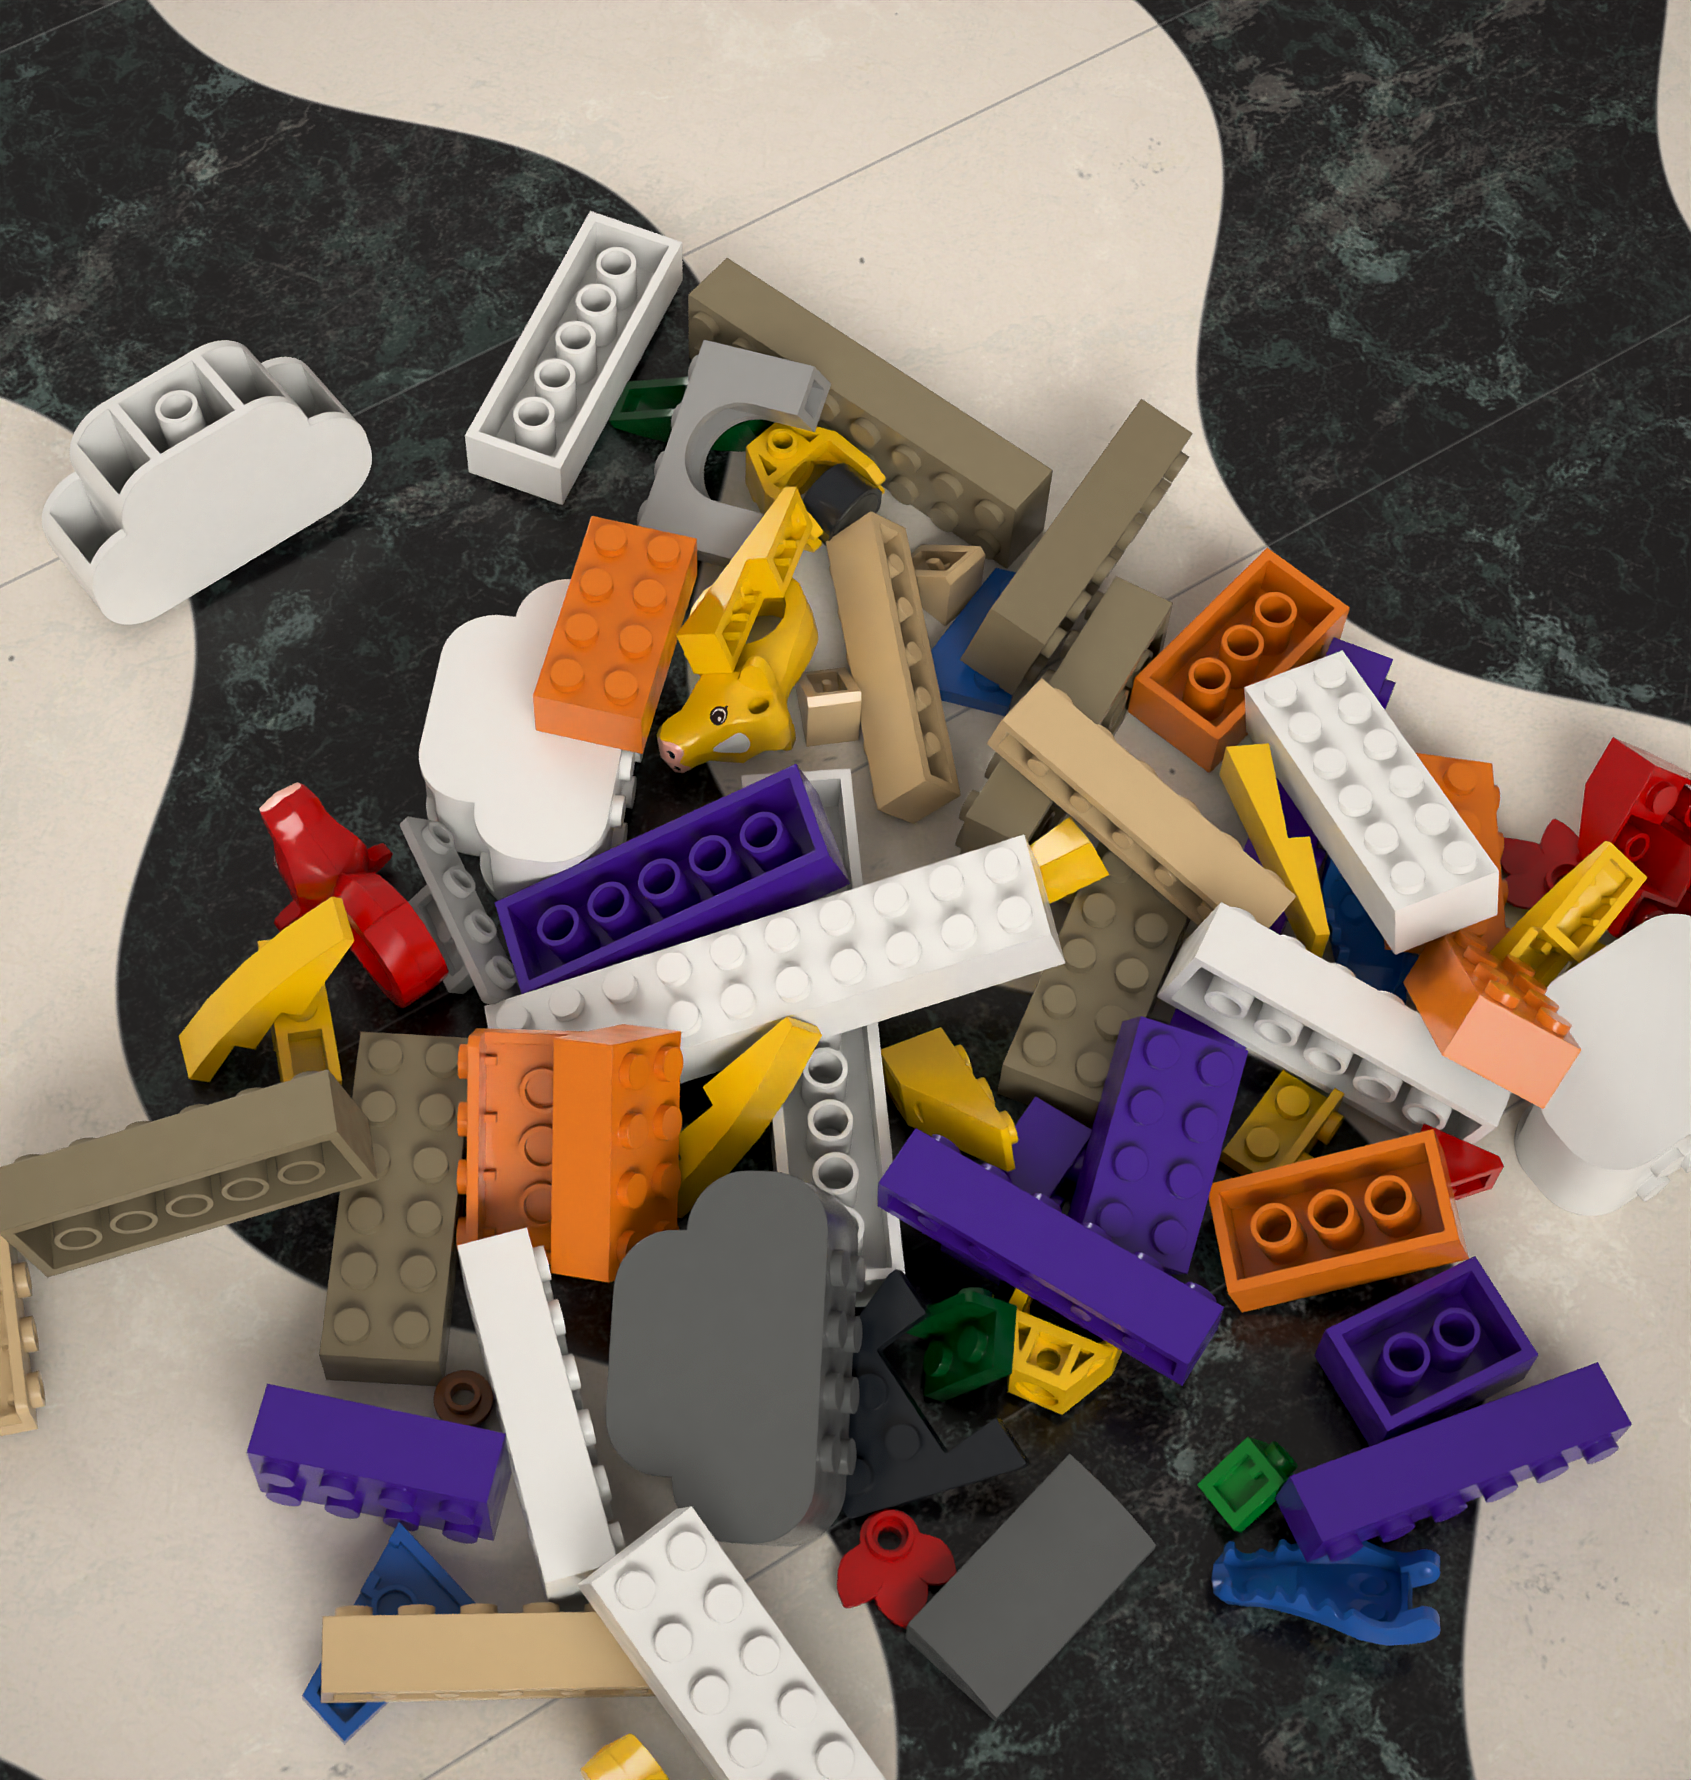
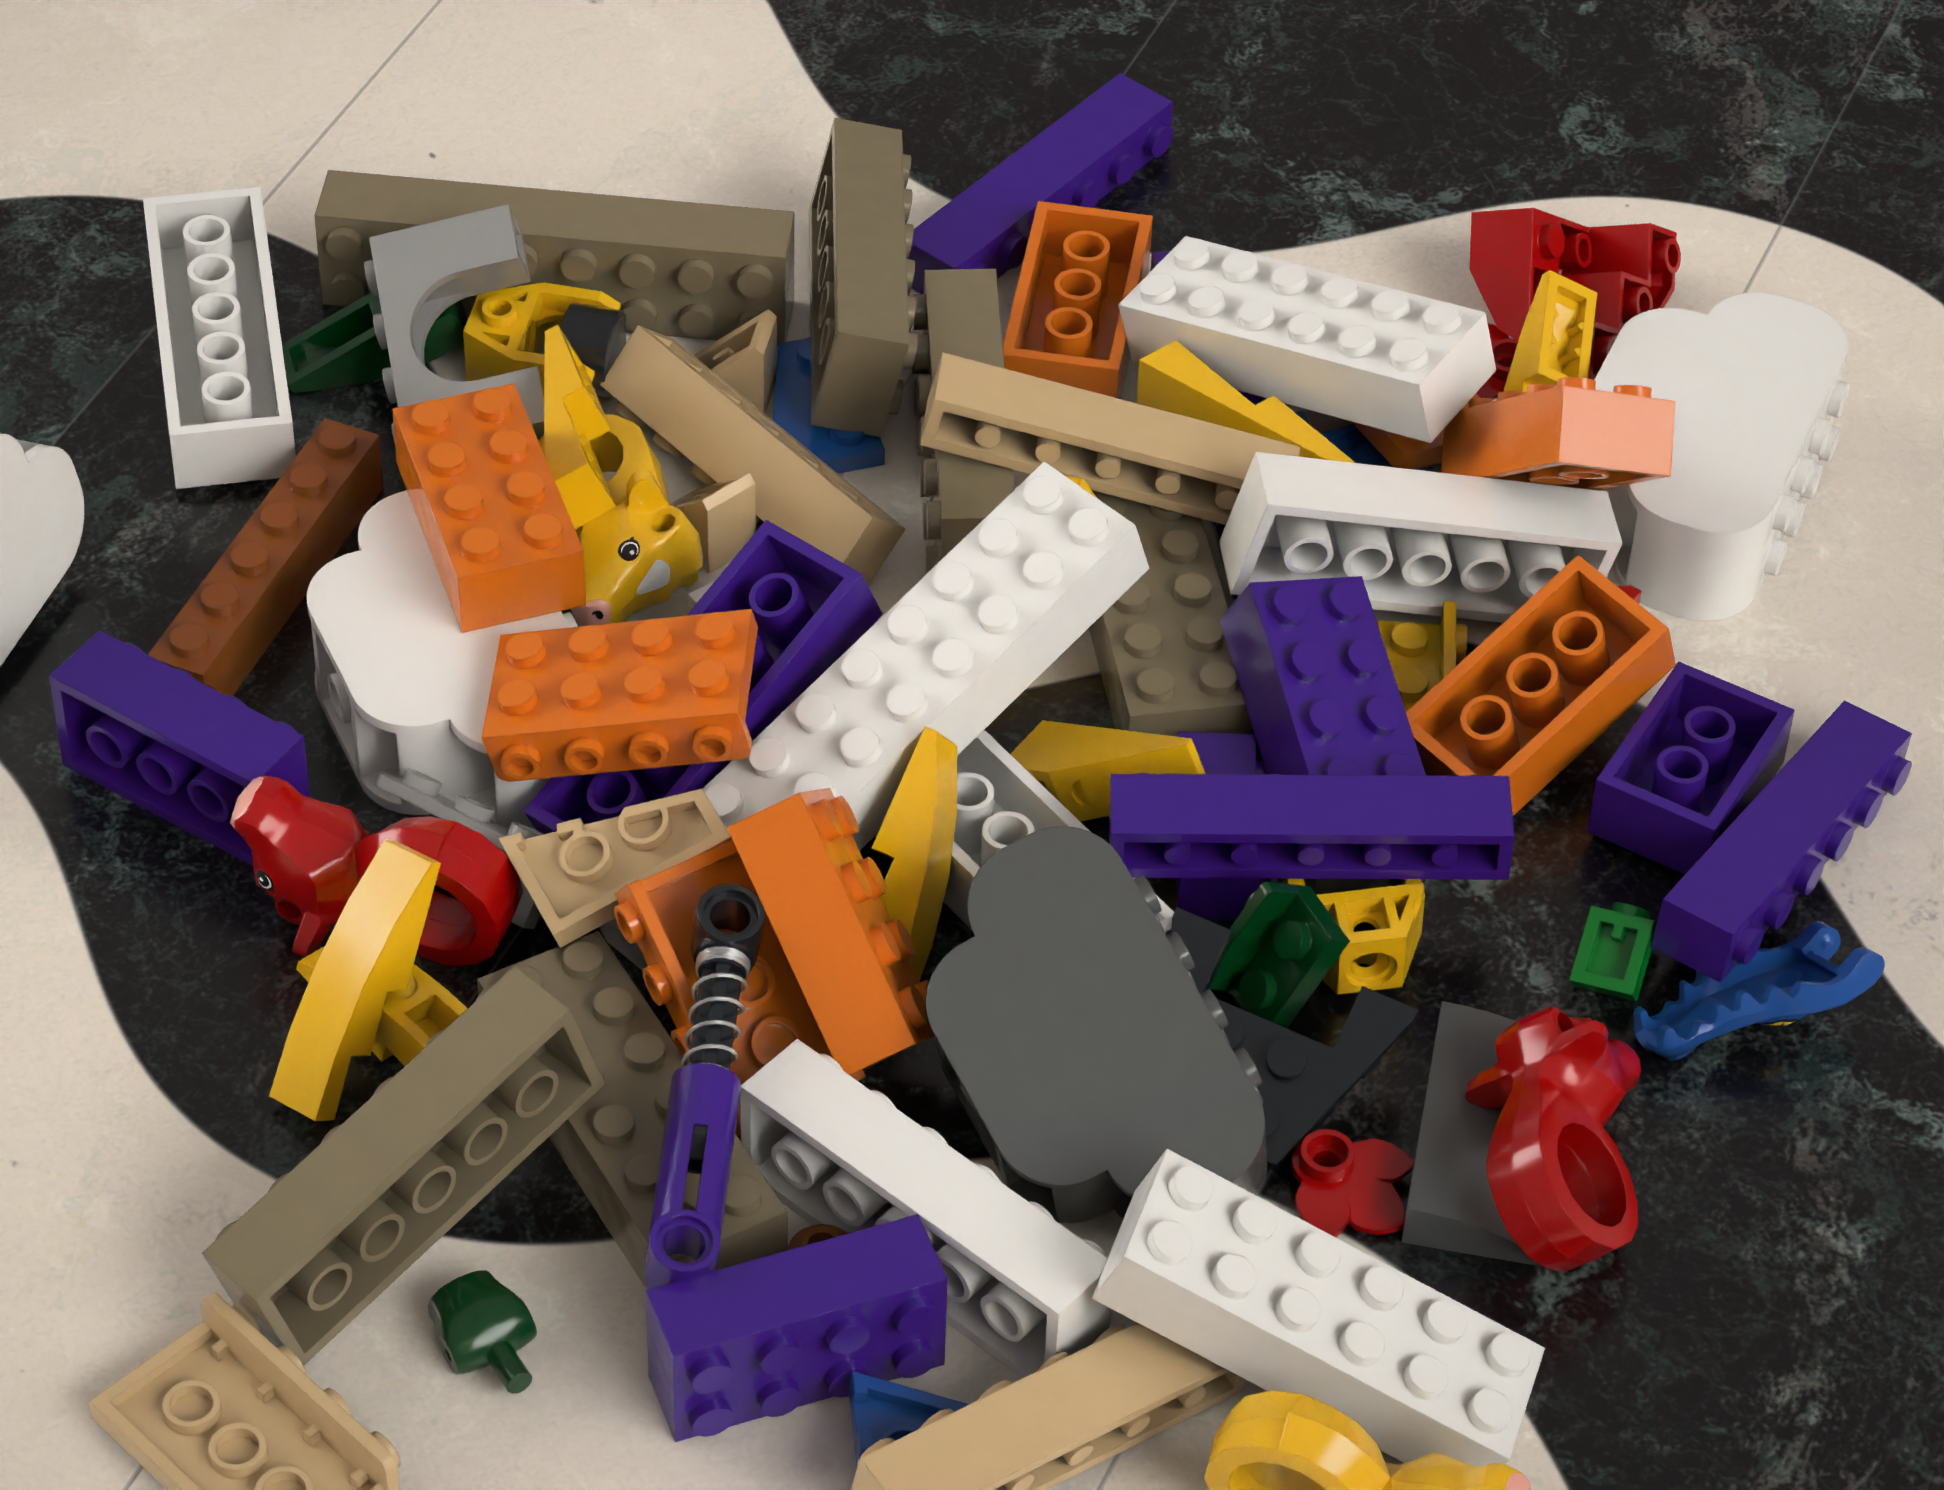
camera: 30 degrees left, 15 degrees down
(184, 1321) = (483, 1326): none -> dark green piece
(297, 706) = (168, 739): none -> dark purple brick
(416, 1245) = (704, 1092): none -> piece
(465, 584) = (275, 558): none -> dark orange brick
(499, 989) = (583, 866): none -> tan wing
(598, 854) = (621, 696): none -> orange bracket
(1090, 1597) = (1549, 1155): none -> red animal
(1298, 523) = (1065, 164): none -> dark purple brick

